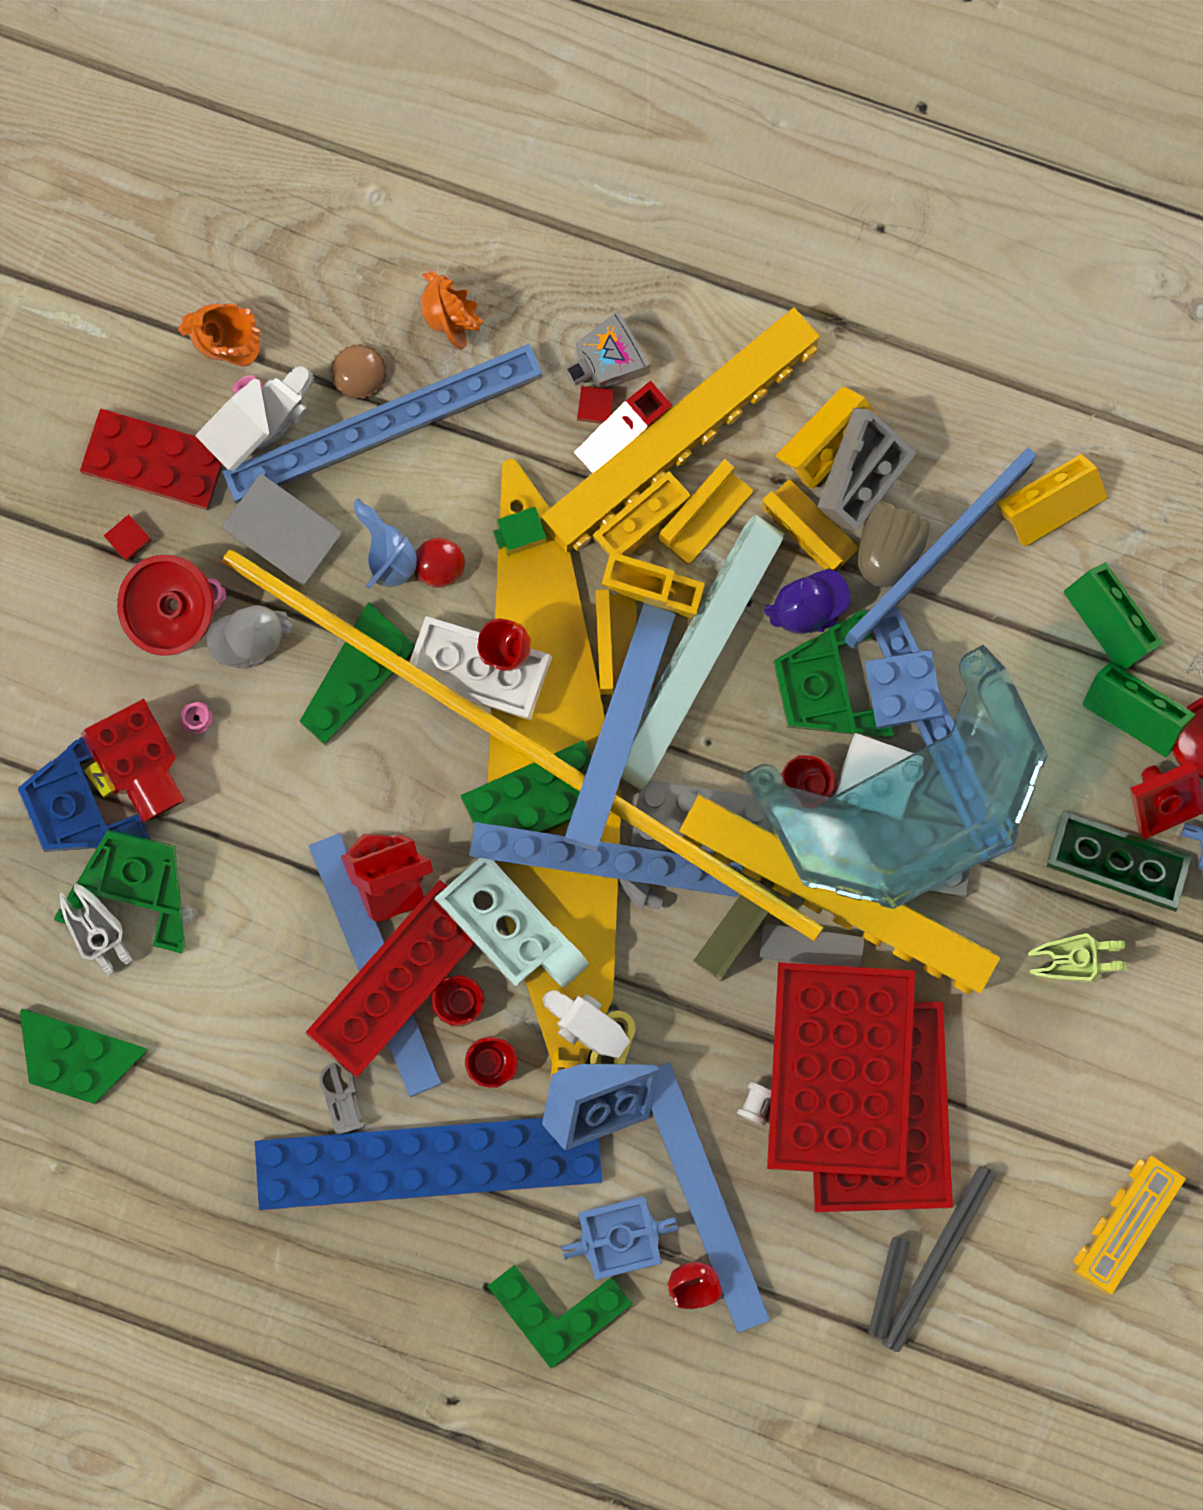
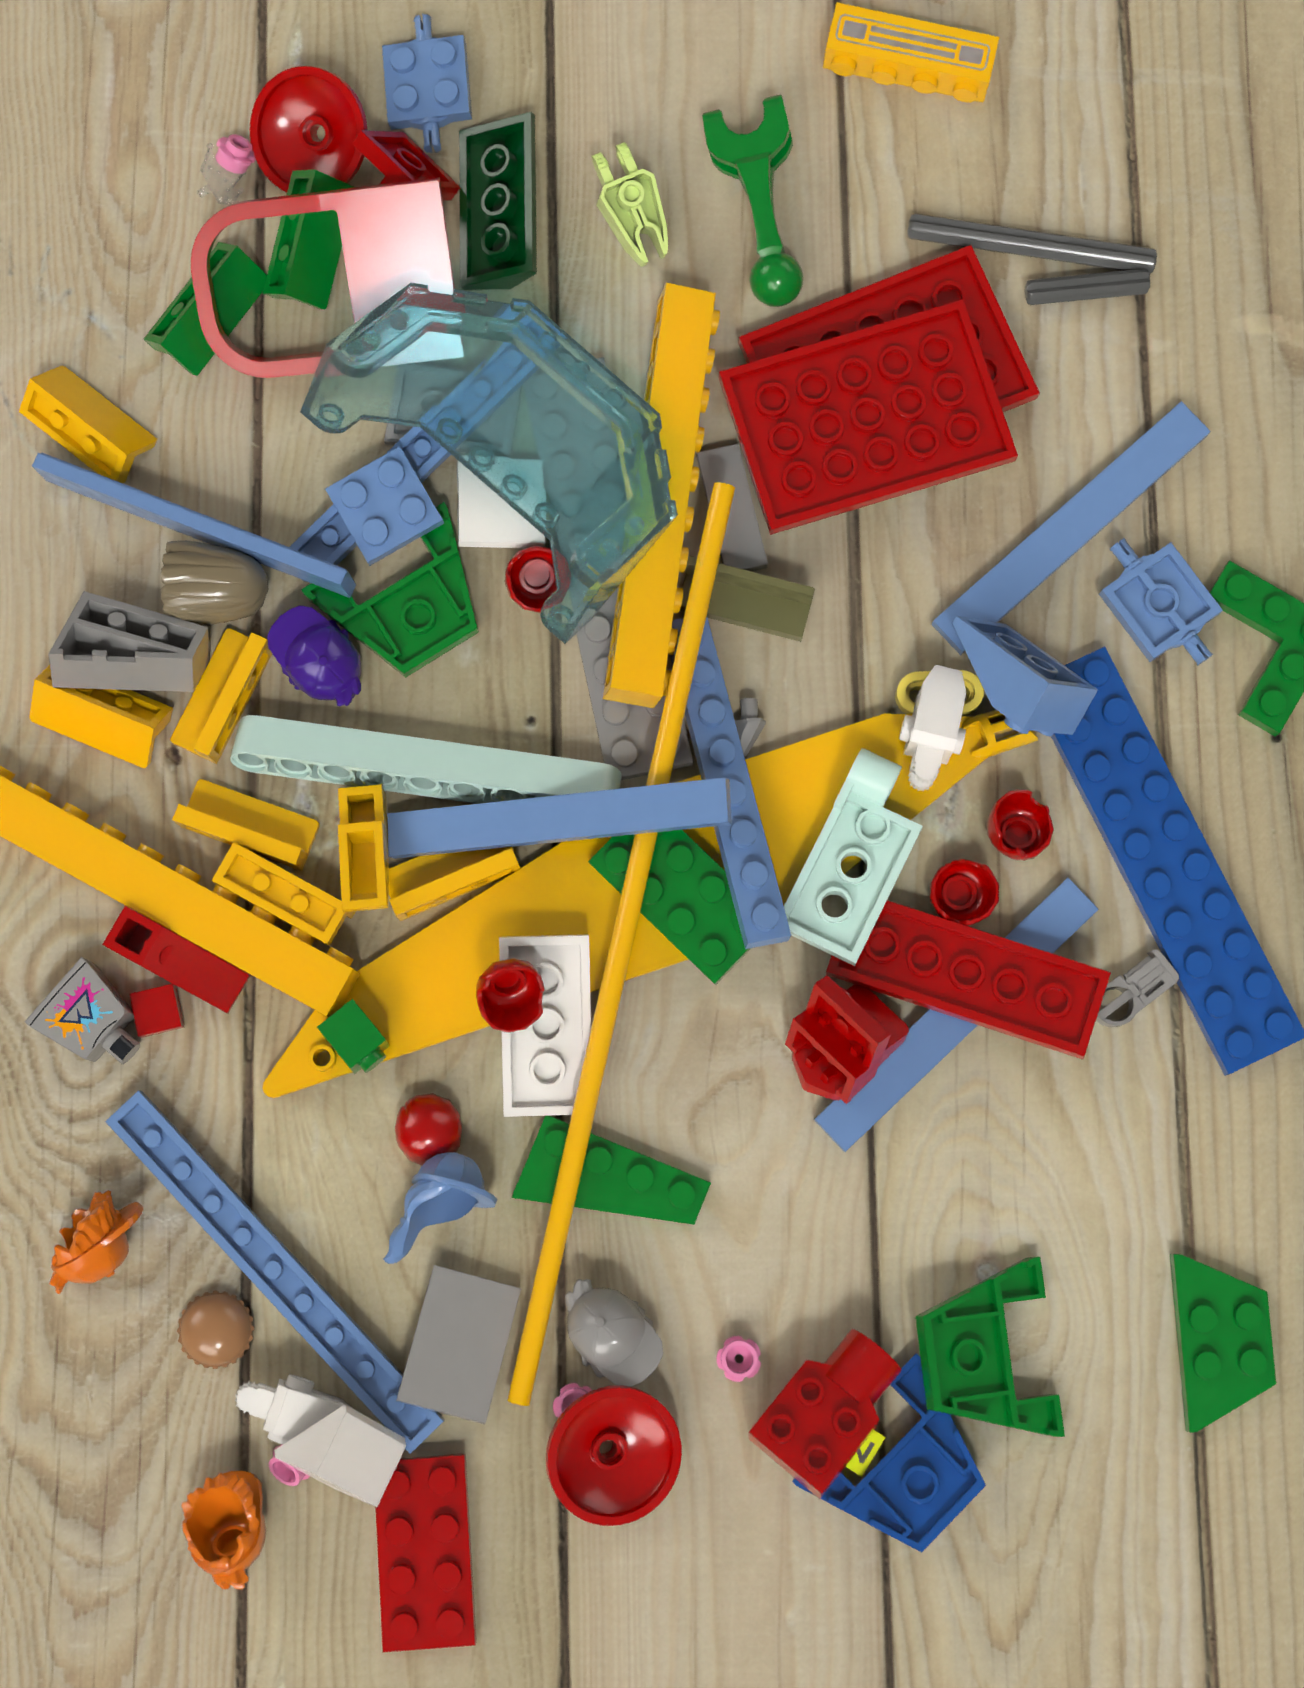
camera: 110 degrees left, 0 degrees up
(94, 929) = (1058, 1379): white hinge -> none
(127, 538) = (540, 1544): red tile -> none
(694, 1285) = (1178, 496): red hair -> none
(756, 1104) = (941, 504): white bush -> none
(981, 1049) = (753, 159): none -> green piece
(1088, 758) = (388, 240): none -> window

